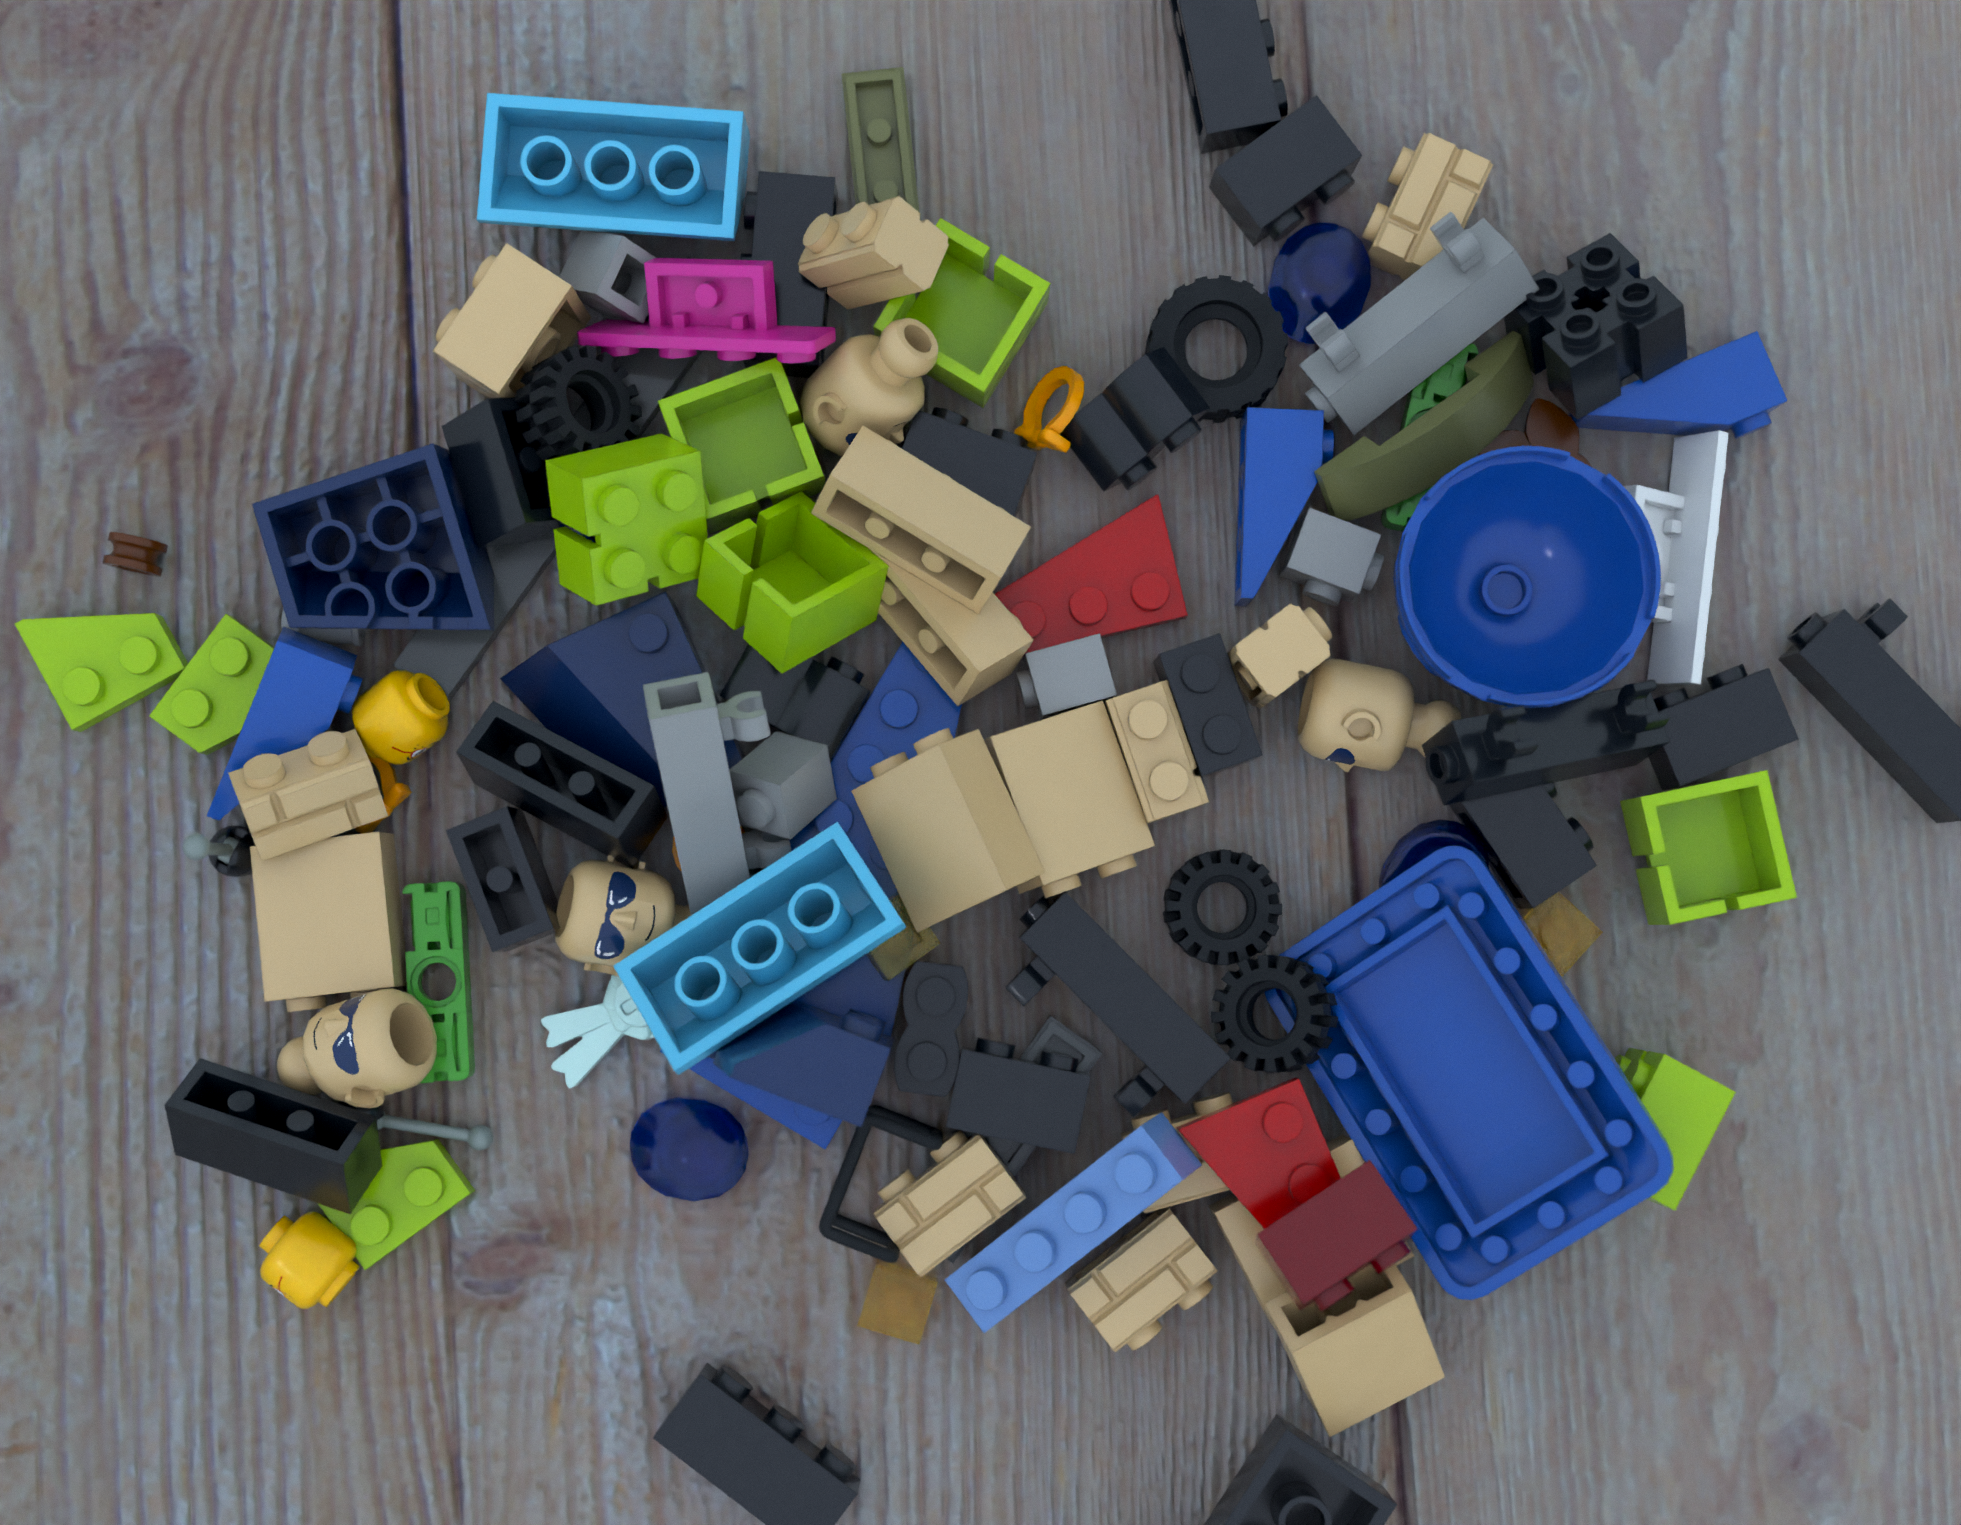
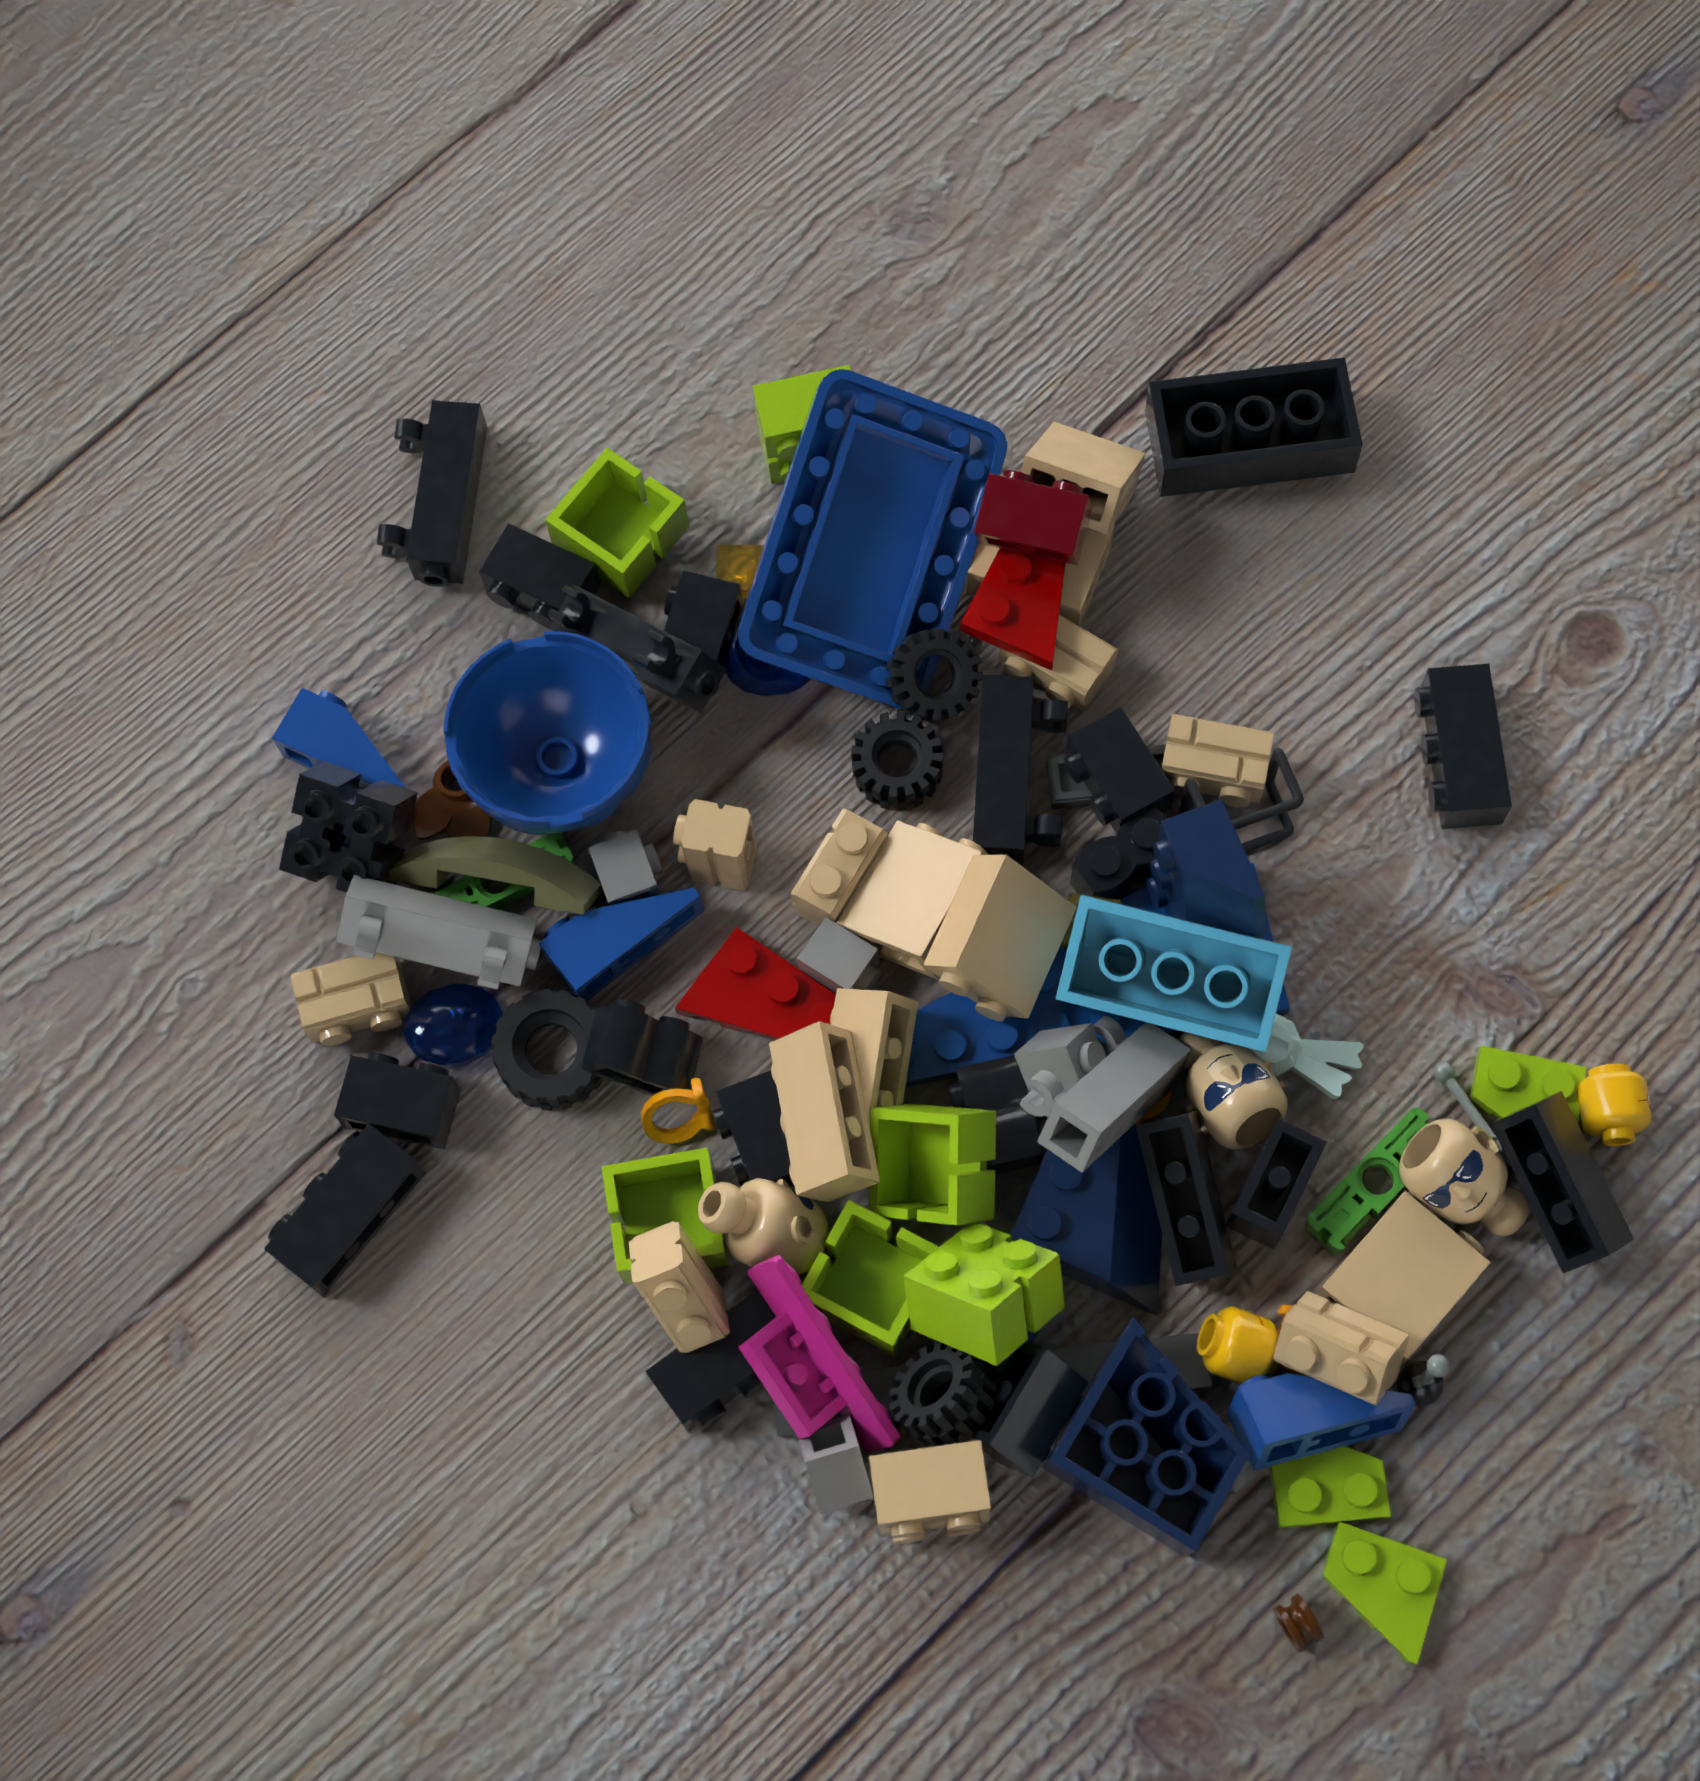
camera: 120 degrees left, 15 degrees down
(613, 167) = (766, 1521): medium azure slope -> none
(689, 1148) = (1329, 942): clear blue hat -> none
(879, 136) = (601, 1369): olive tile -> none
(897, 1302) = (1304, 747): clear yellow plate -> none
(1073, 1221) = (1159, 676): medium blue brick -> none
(1142, 1280) = (1156, 624): tan brick -> none
(1209, 705) = (779, 863): black brick -> none
(1365, 715) = (705, 761): tan piece -> none
(1686, 538) = (427, 687): white bracket -> none

